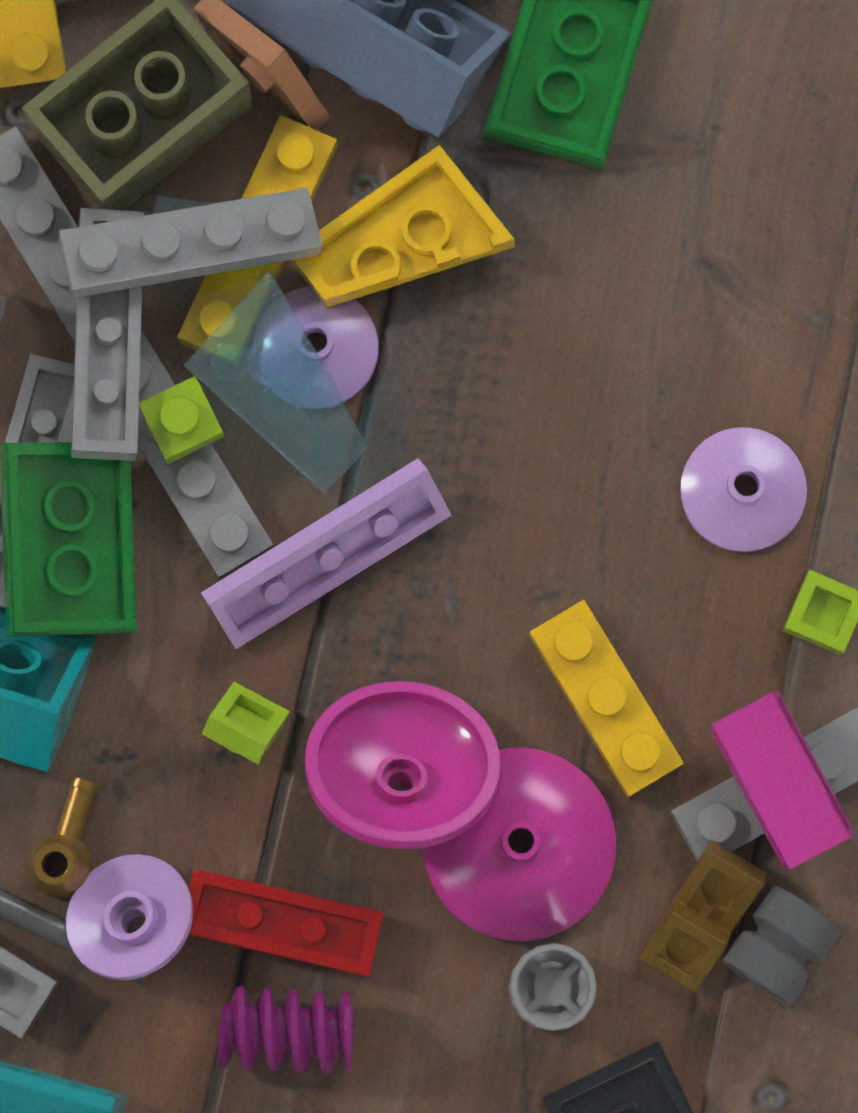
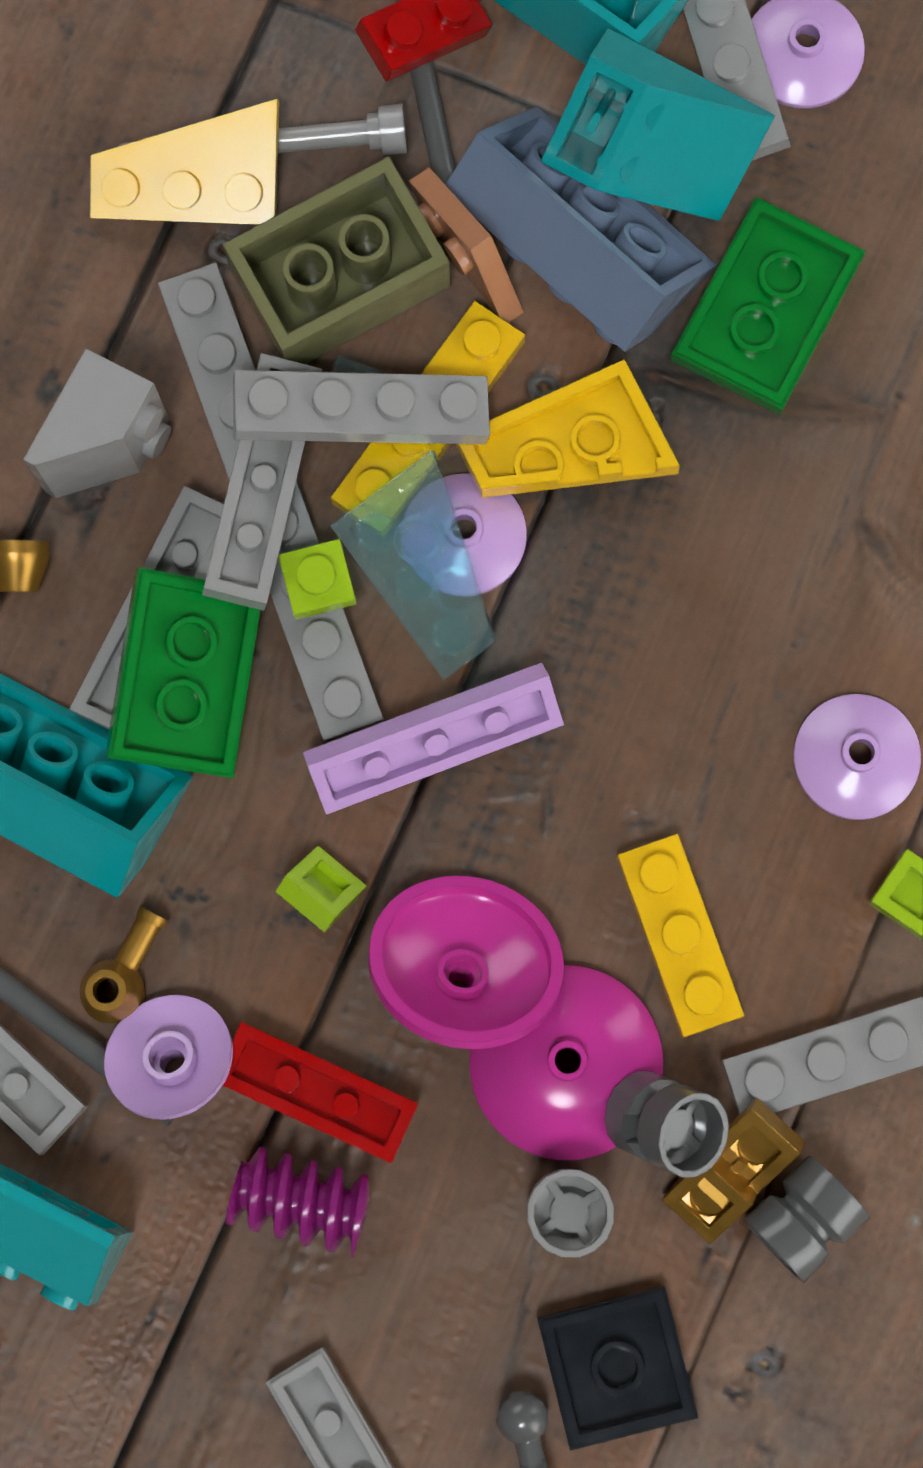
camera: 15 degrees right, 0 degrees up
(629, 882) = (666, 1123): none -> dark grey wheel
(781, 780) = (838, 1054): dark pink piece -> none

